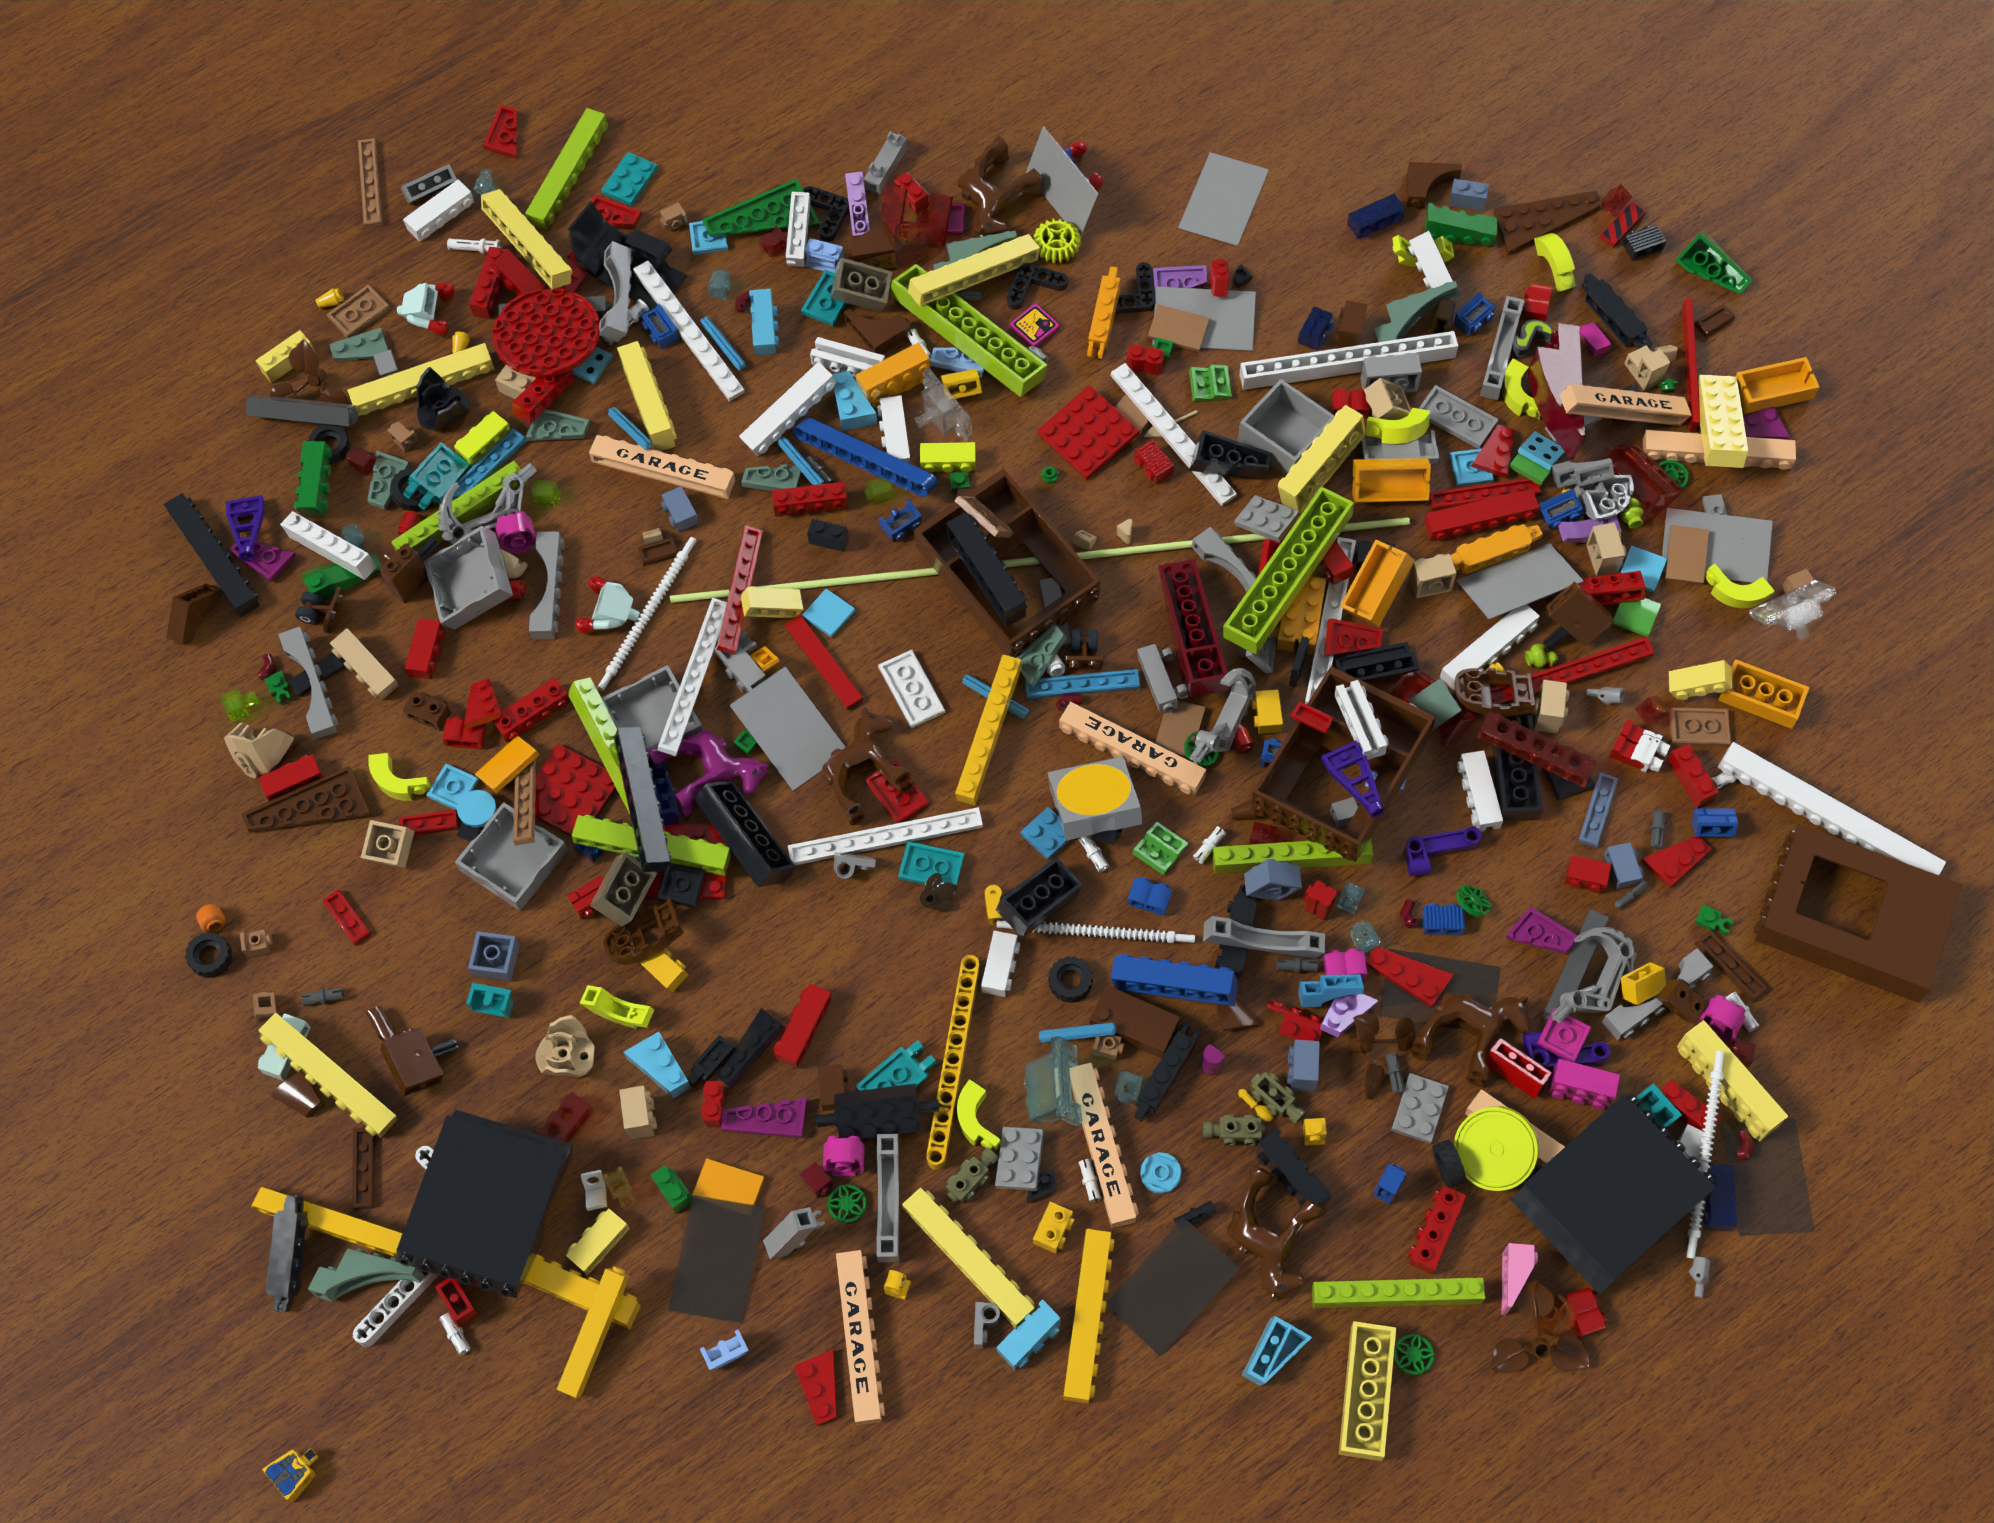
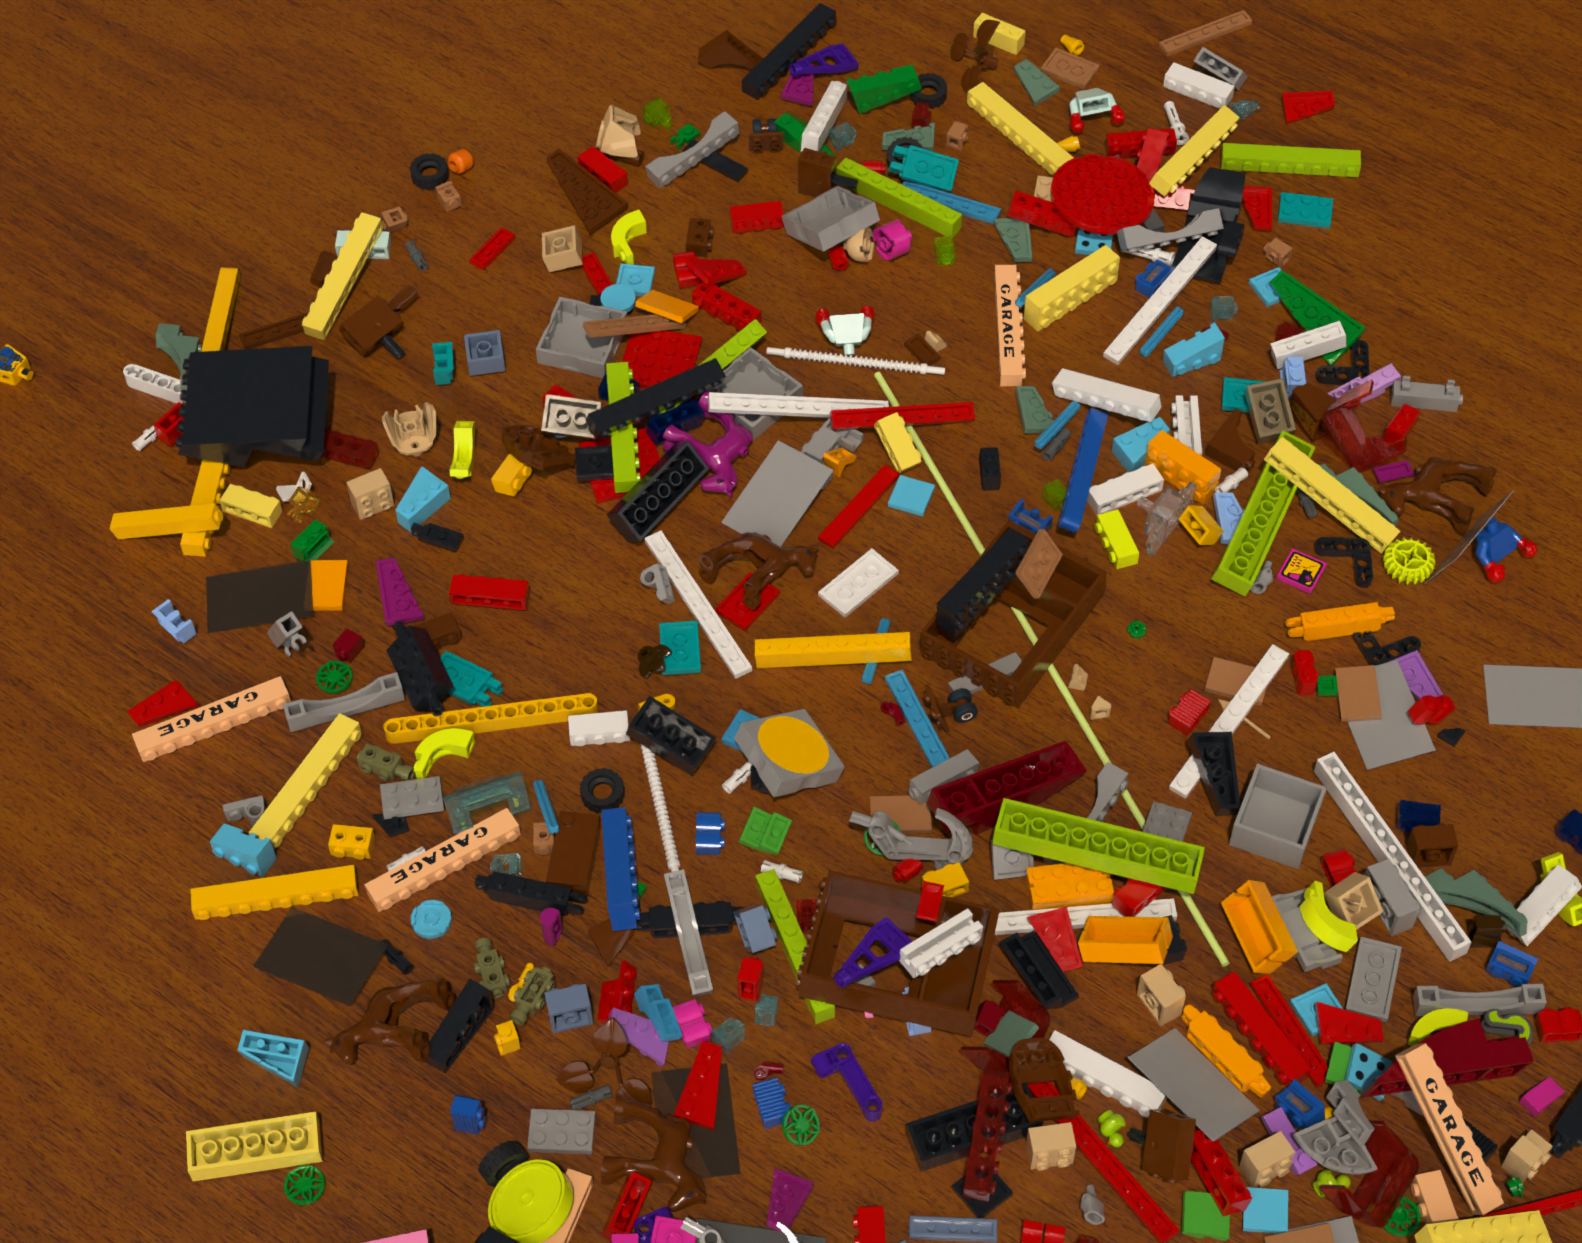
camera: 70 degrees right, 10 degrees down
(268, 668) = (700, 123): dark red arm -> none
(287, 1252) = (185, 299): black hinge -> none
(301, 410) = (949, 59): dark grey brick -> none
(364, 664) = (724, 181): tan brick -> none
(386, 363) = (1022, 100): light grey brick -> none
(437, 402) = (1003, 147): black piece -> none
(482, 438) = (979, 189): neon yellow brick -> none
(509, 499) = (923, 222): light grey piece -> none
(543, 618) = (820, 288): light grey arch -> none
(679, 508) = (970, 350): sand blue brick -> none
(714, 1101) = (399, 547): red brick -> none
(745, 742) = (750, 469): green plate -> none
(754, 1042) = (457, 560): black wing -> none
(810, 499) = (1022, 444): red brick -> none
(843, 1156) = (372, 656): dark pink brick -> none
(897, 1285) = (265, 732): yellow leg -> none
(959, 480) = (1097, 557): green plate -> none
(1040, 653) = (929, 670): sand green wing -> none
(1056, 667) = (934, 683): white cone -> none
(1087, 432) = (1198, 647): red plate -> none
(1135, 749) = (861, 776): light nougat brick -> none
(1210, 383) = (1307, 739): bright green slope -> none
(1296, 964) = (679, 980): dark grey pin -> none
(1299, 661) = (1009, 894): black tile -> none
(1322, 459) = (1254, 854): light yellow brick -> none
(1398, 1293) = (360, 1153): lime brick -> none
(1437, 1229) = (435, 1174): red brick -> none
(1480, 790) = (934, 1099): white brick -> none
(1669, 350) = (1560, 1176): tan slope -> none

